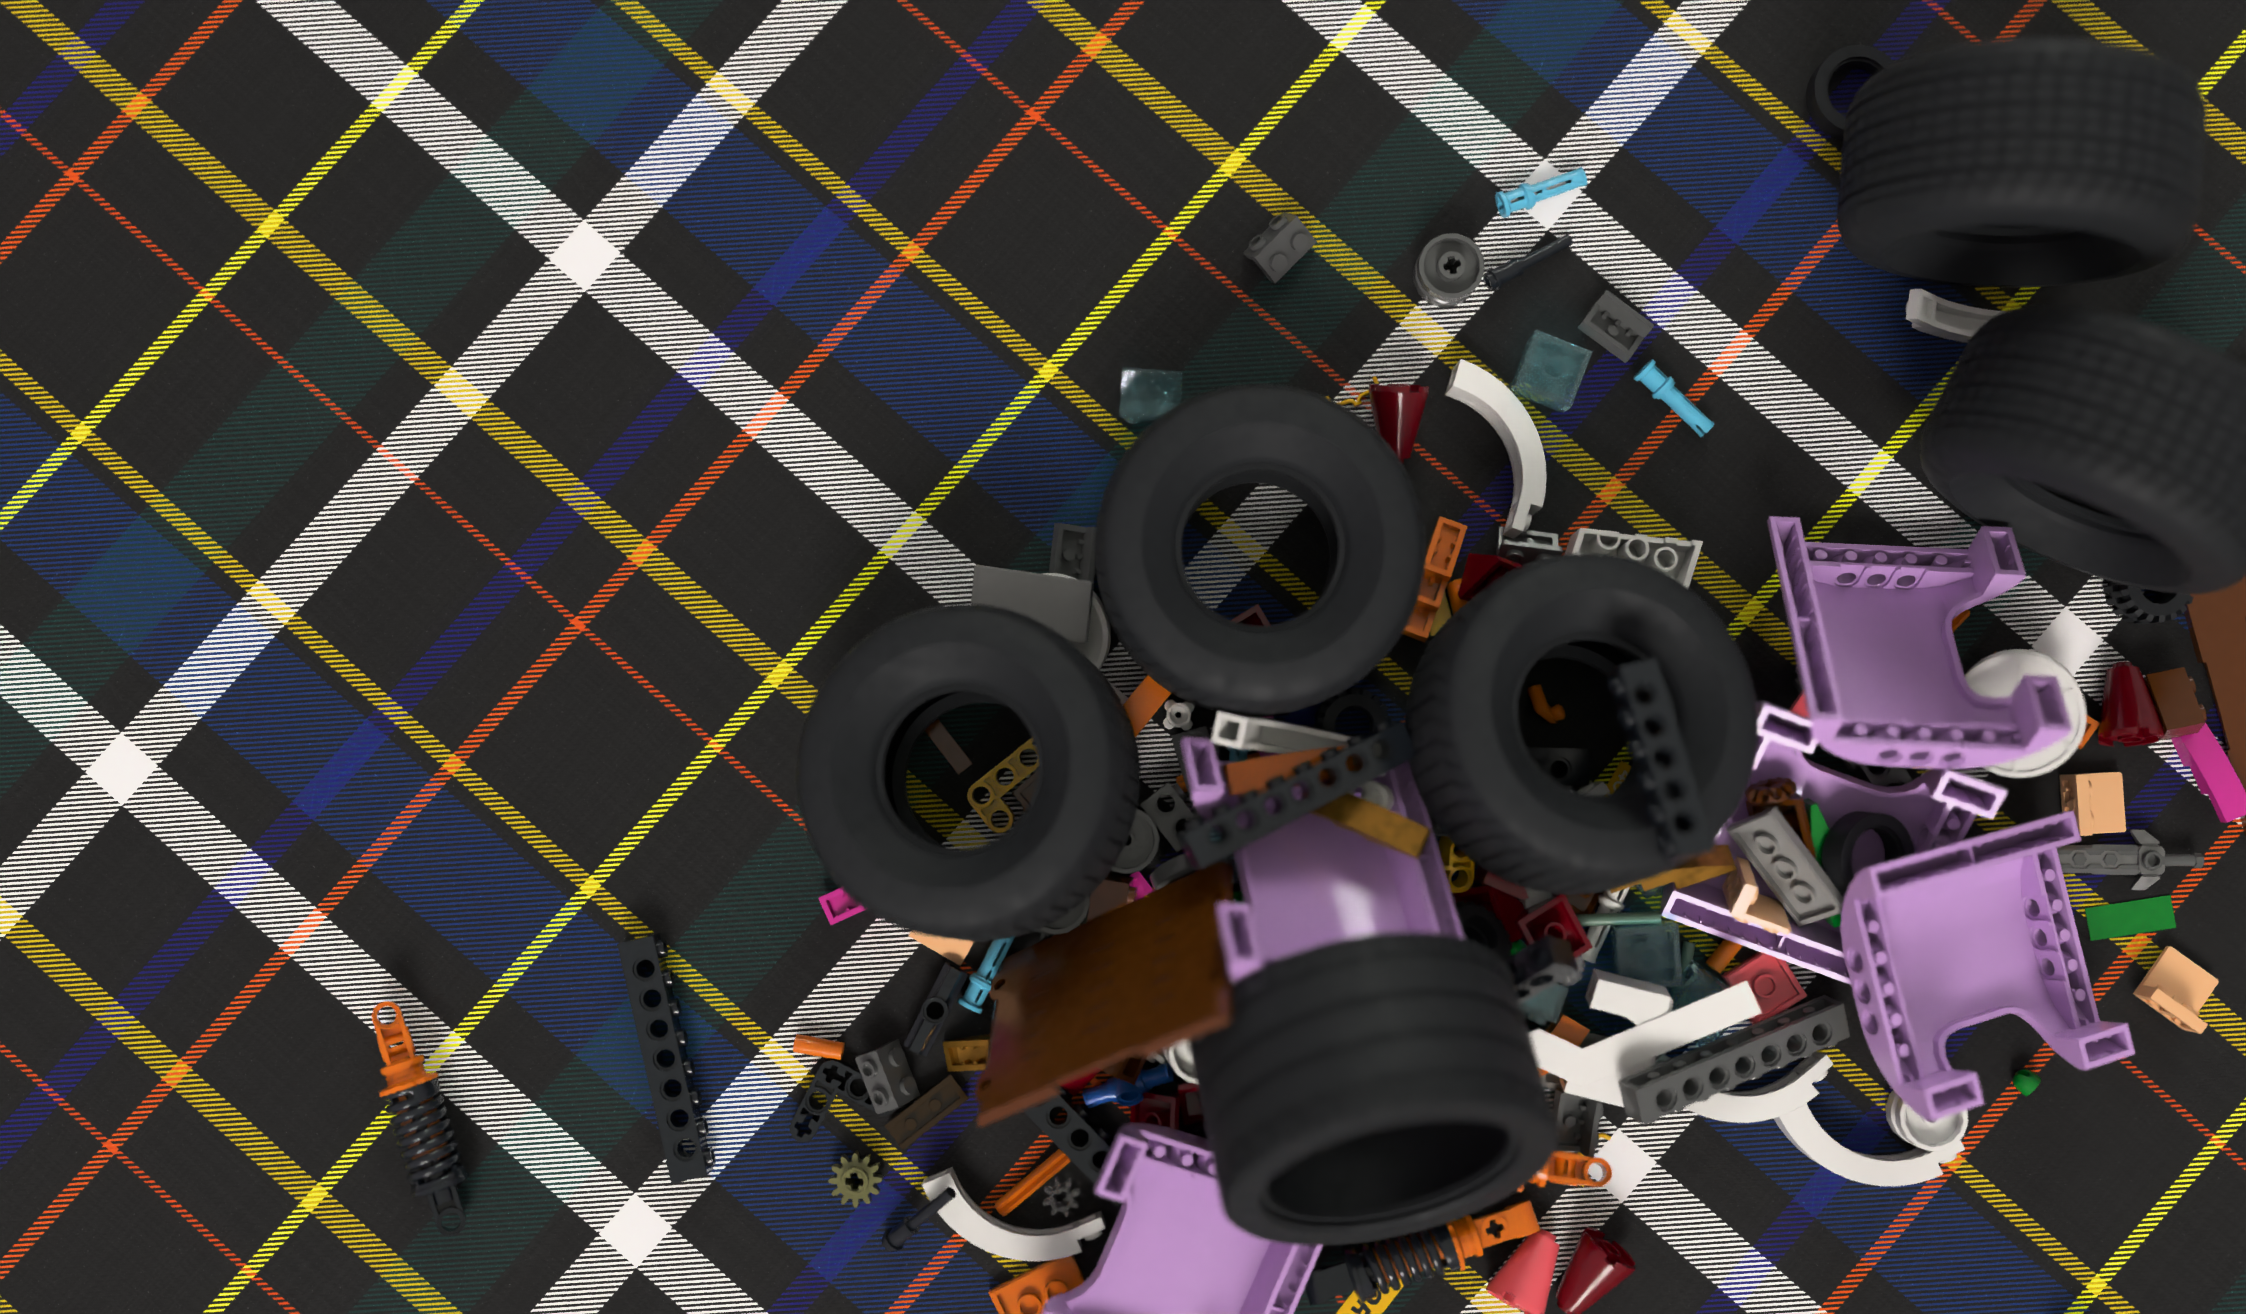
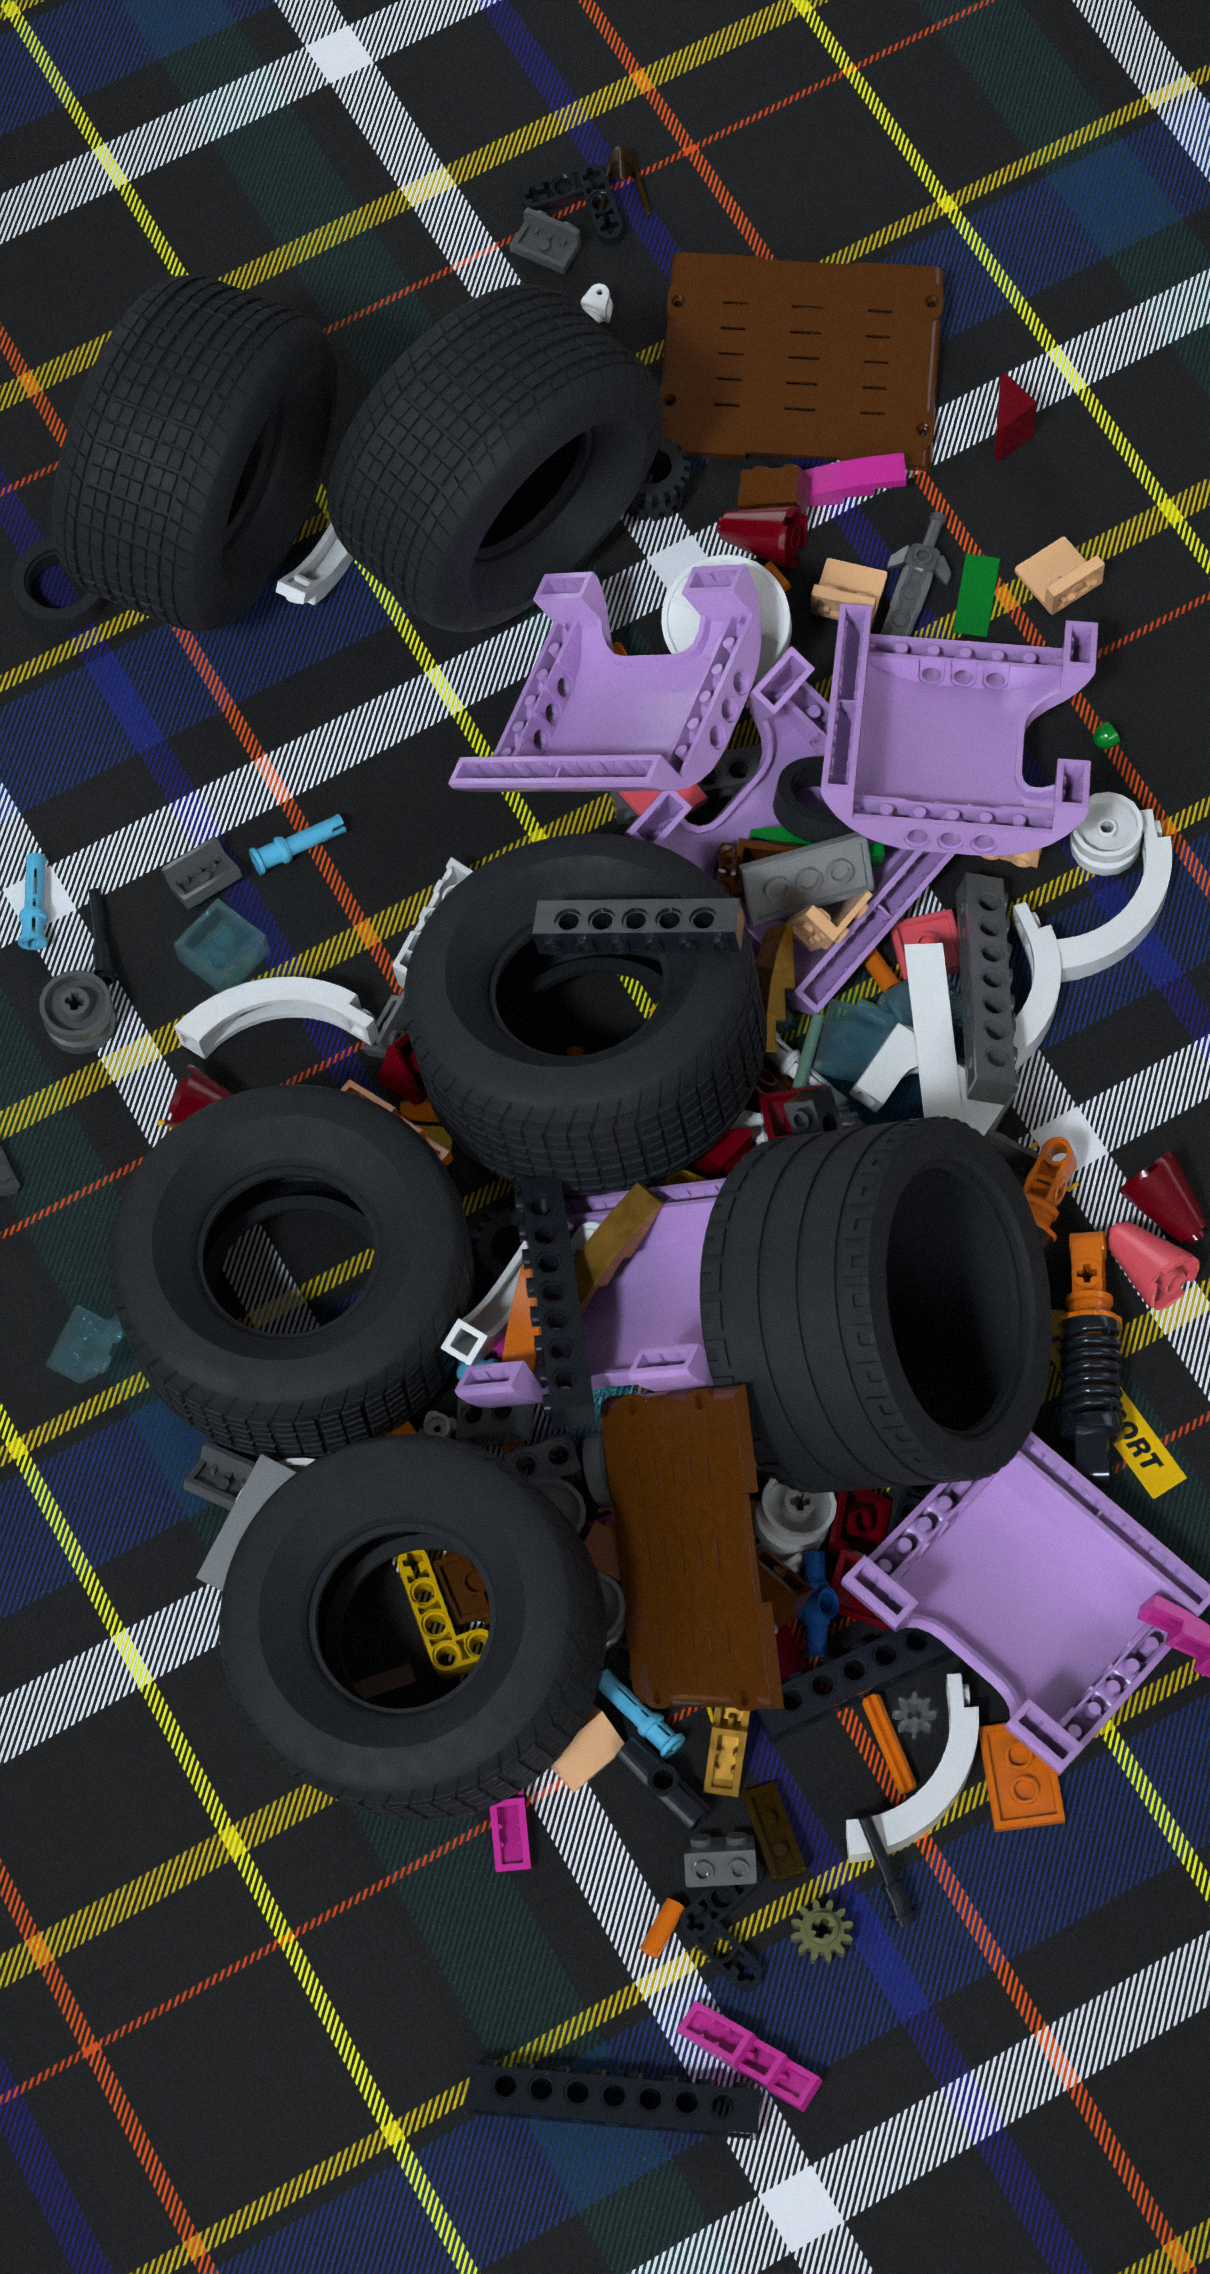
camera: 65 degrees left, 20 degrees down
(738, 1152) = (749, 2056): none -> dark pink slope

